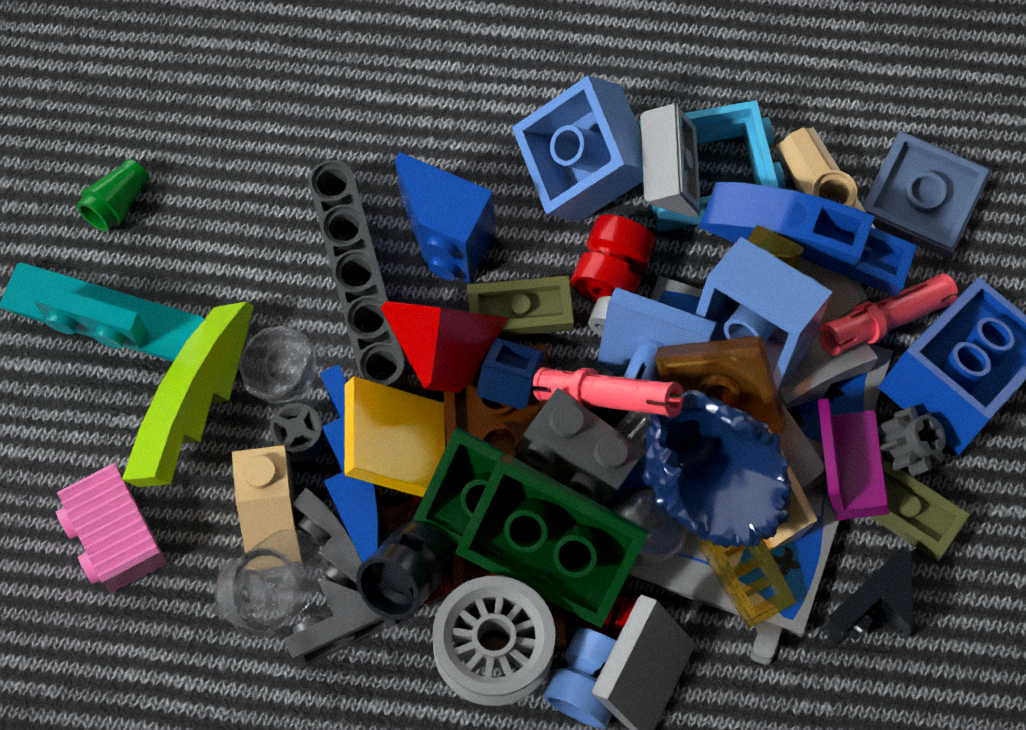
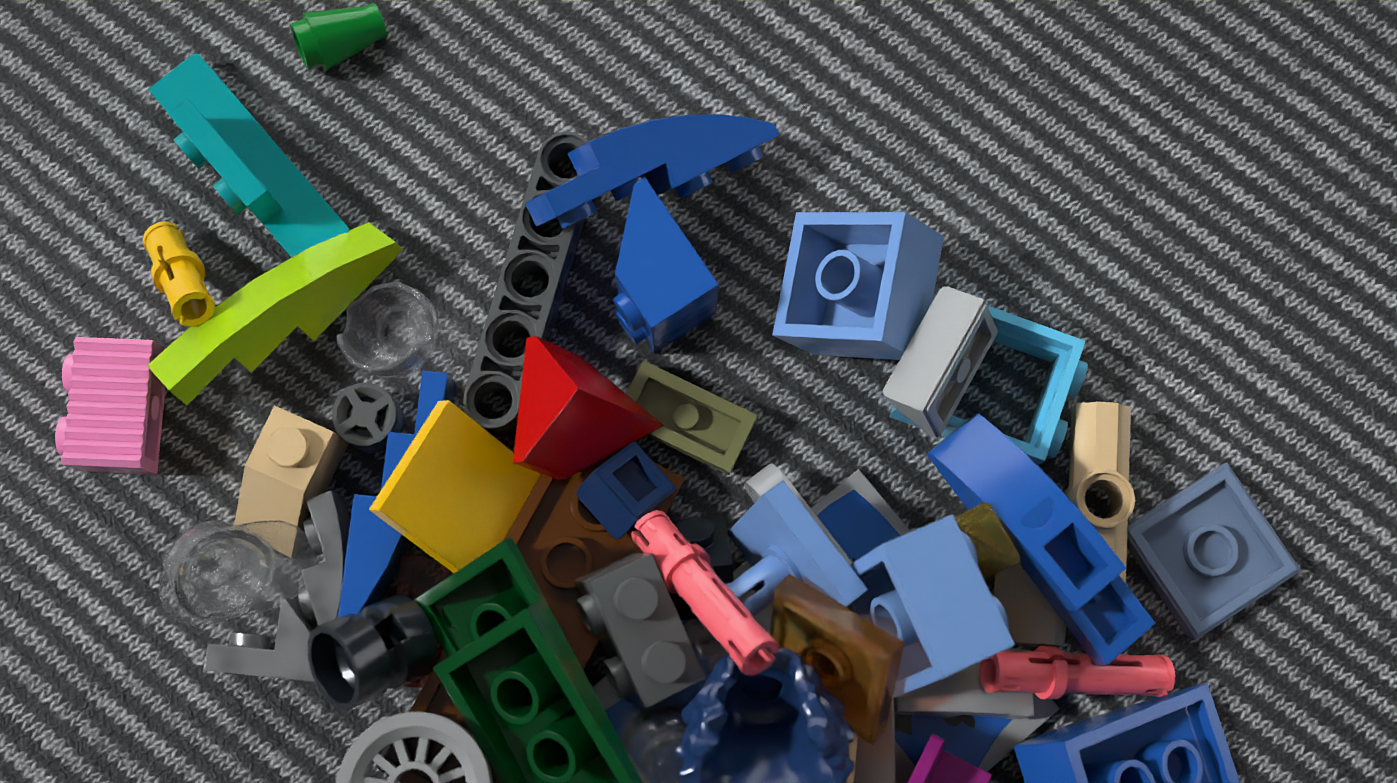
camera: 25 degrees right, 10 degrees up
(119, 413) = (178, 274): none -> yellow pin
(403, 128) = (664, 151): none -> blue slope
(615, 256) = (819, 426): red wheel -> none

